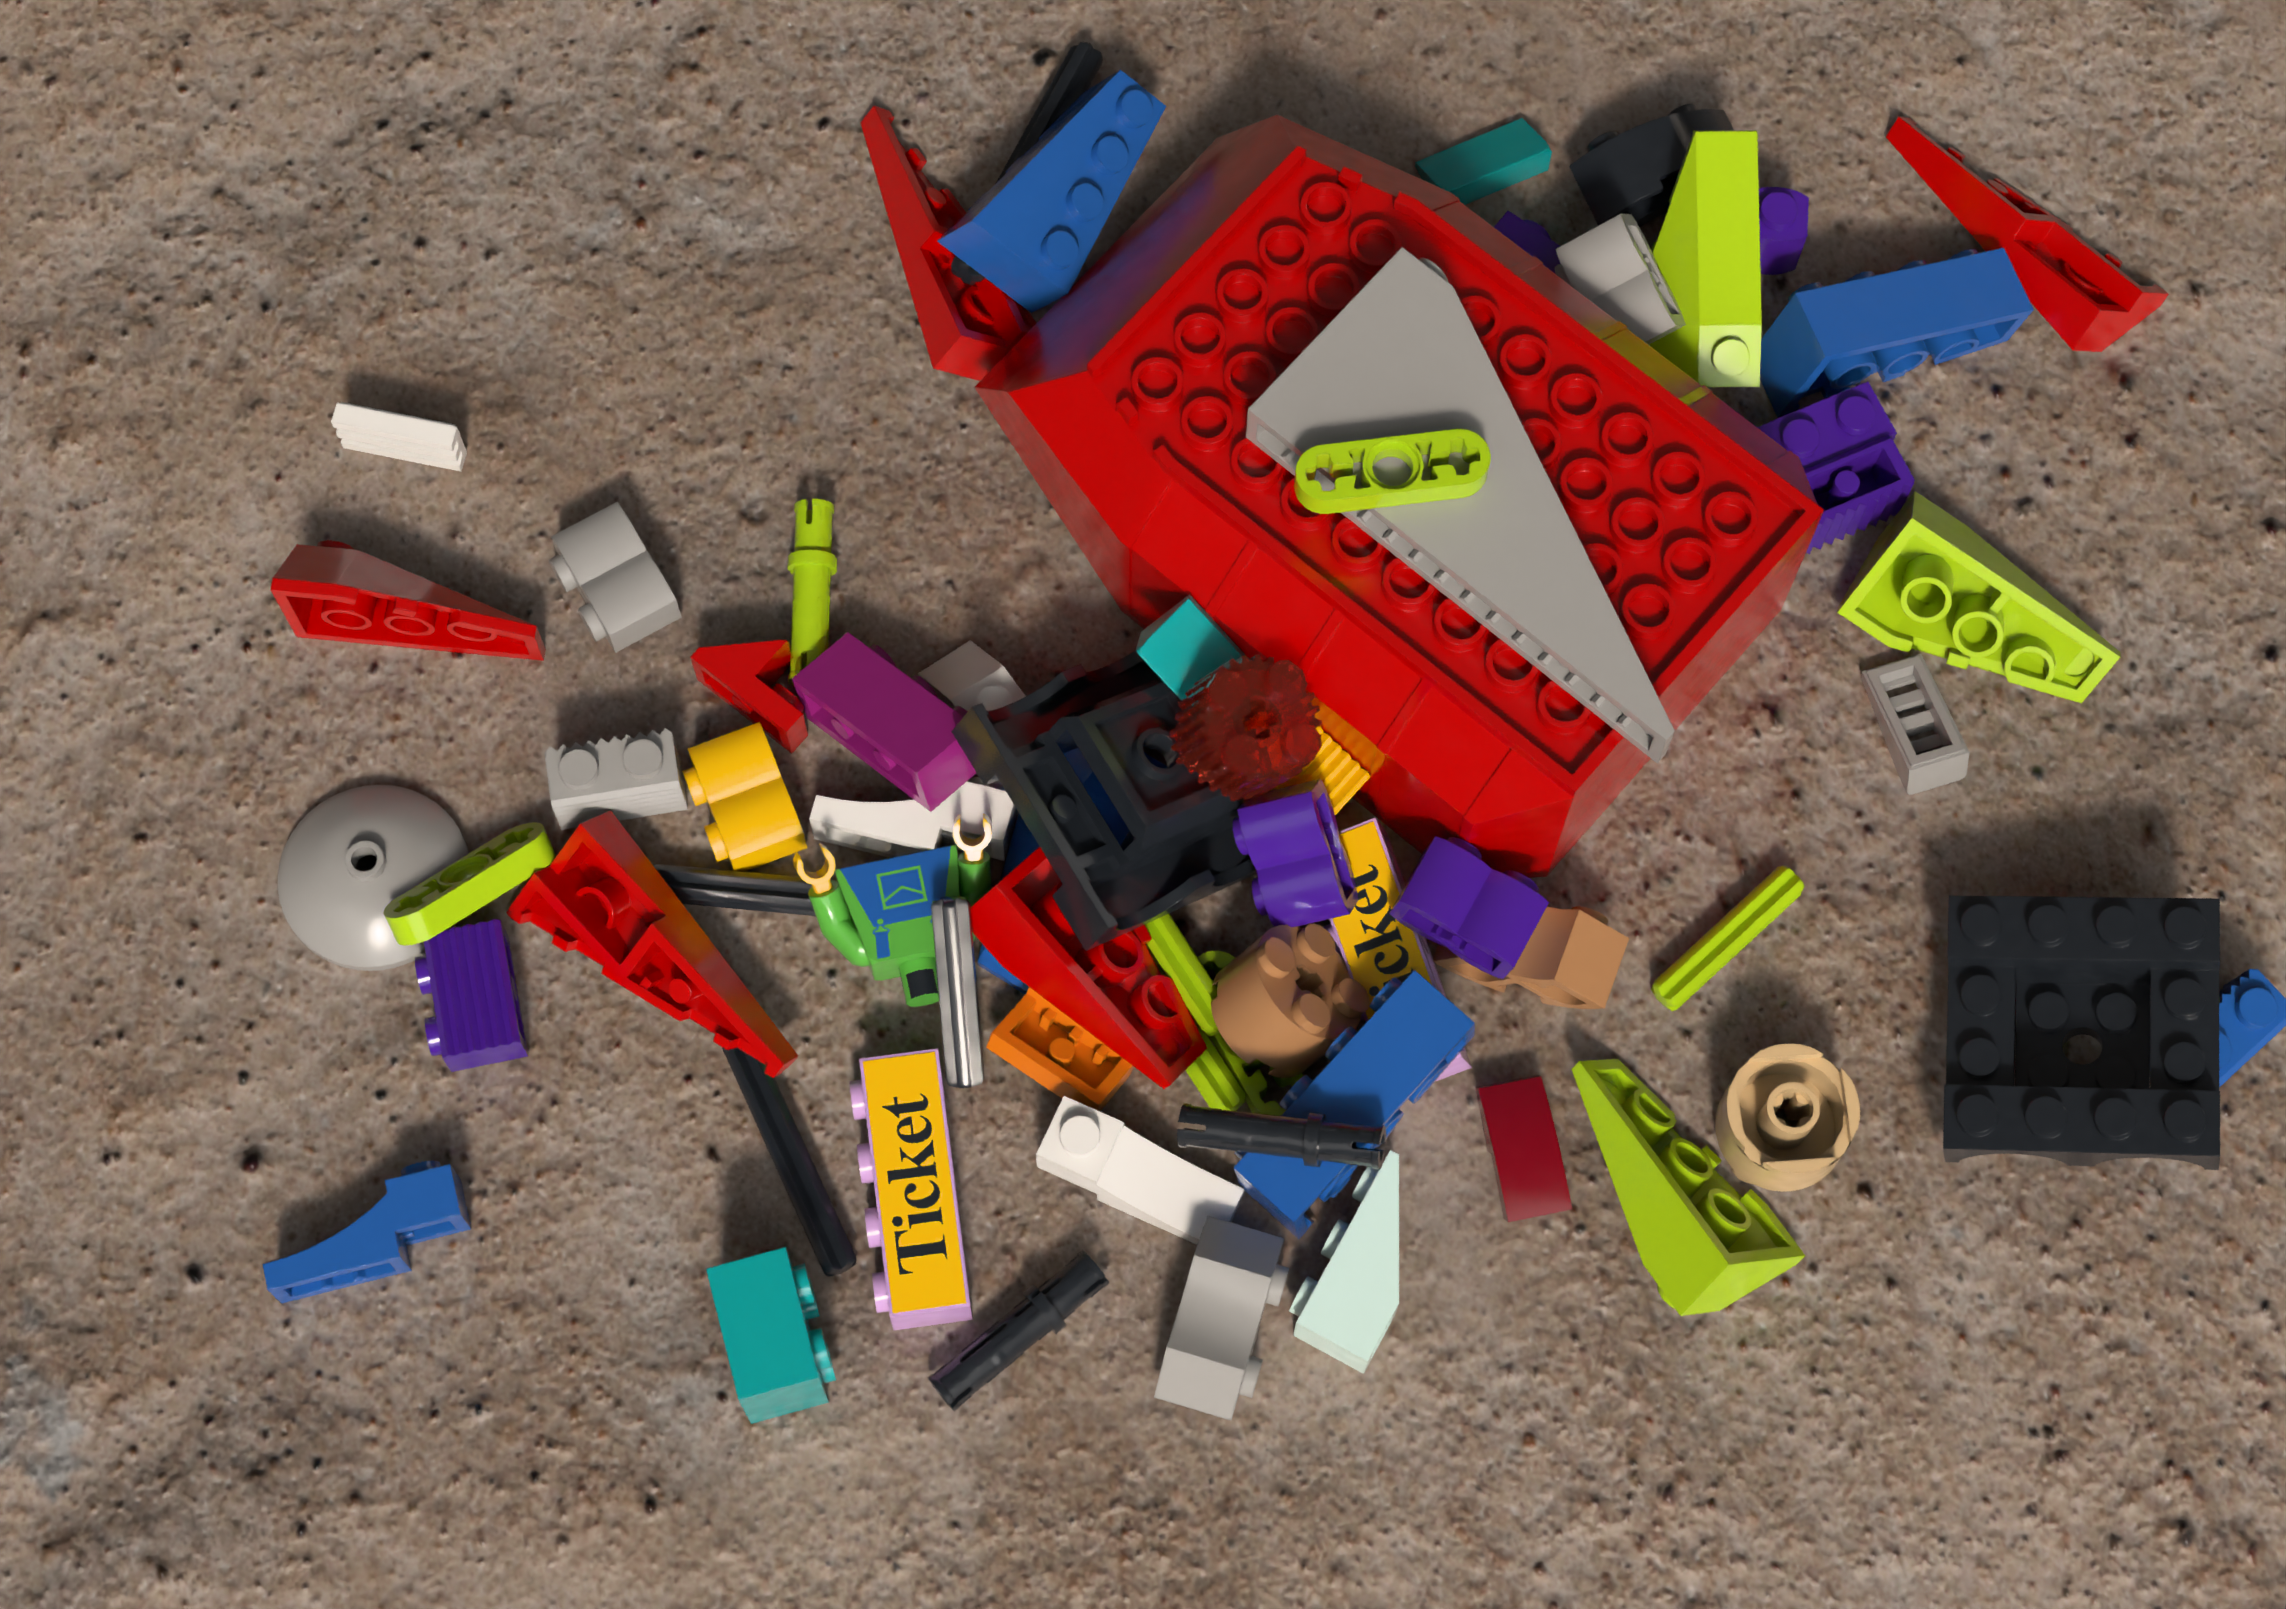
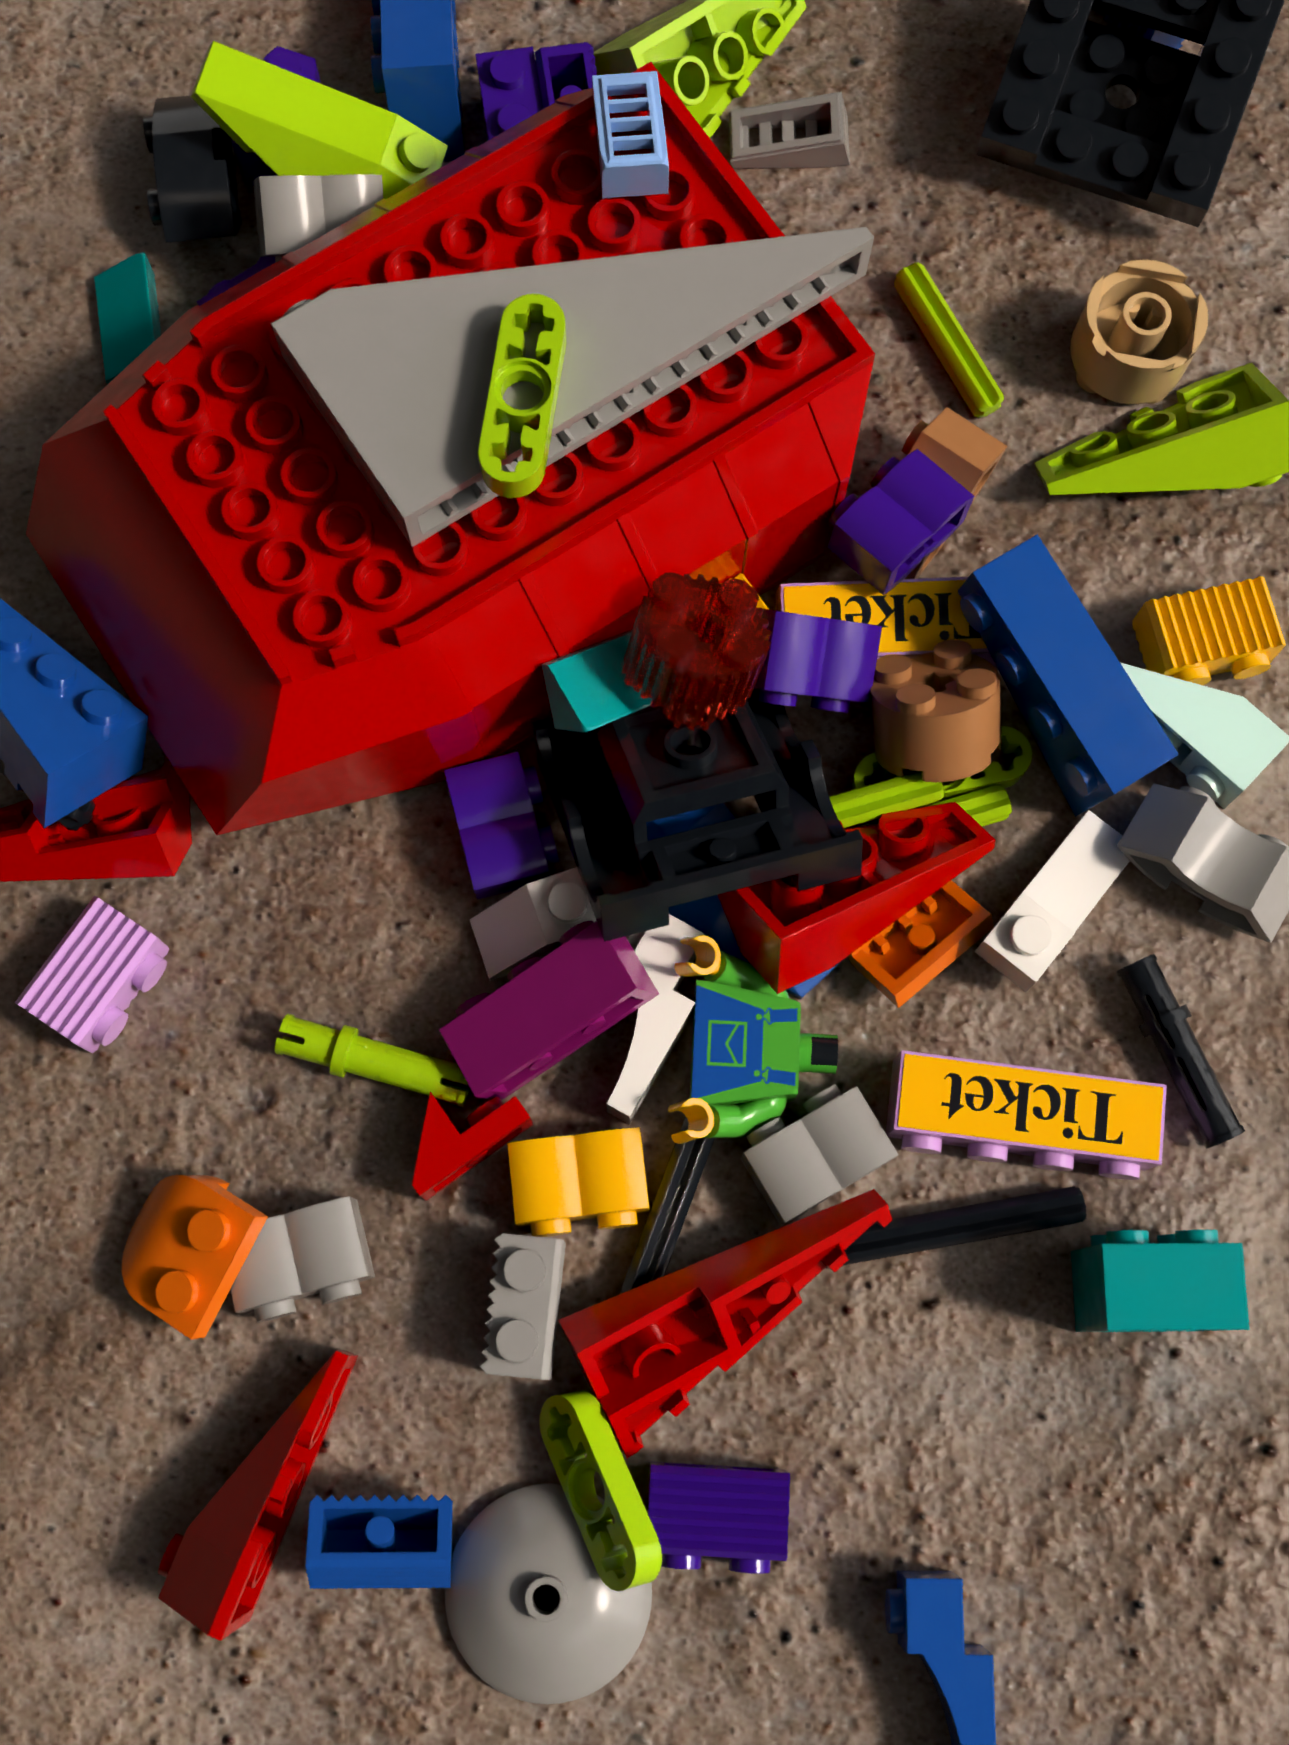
camera: 75 degrees left, 5 degrees up
(381, 712) = (379, 1543): none -> blue brick
(399, 436) = (58, 1454): white tile -> none
(595, 483) = (188, 1250): none -> orange slope
(824, 333) = (95, 976): none -> lavender brick
(824, 1005) = (816, 1154): none -> light grey brick
(957, 991) = (844, 1016): axle -> none
(1068, 628) = (499, 824): none -> dark purple brick
(1282, 1136) = (1115, 717): black pin -> none
(1470, 1268) = (1210, 632): none -> yellow brick
(1523, 1148) = (1110, 558): dark red slope -> none
(1695, 539) = (636, 172): none -> light blue slope

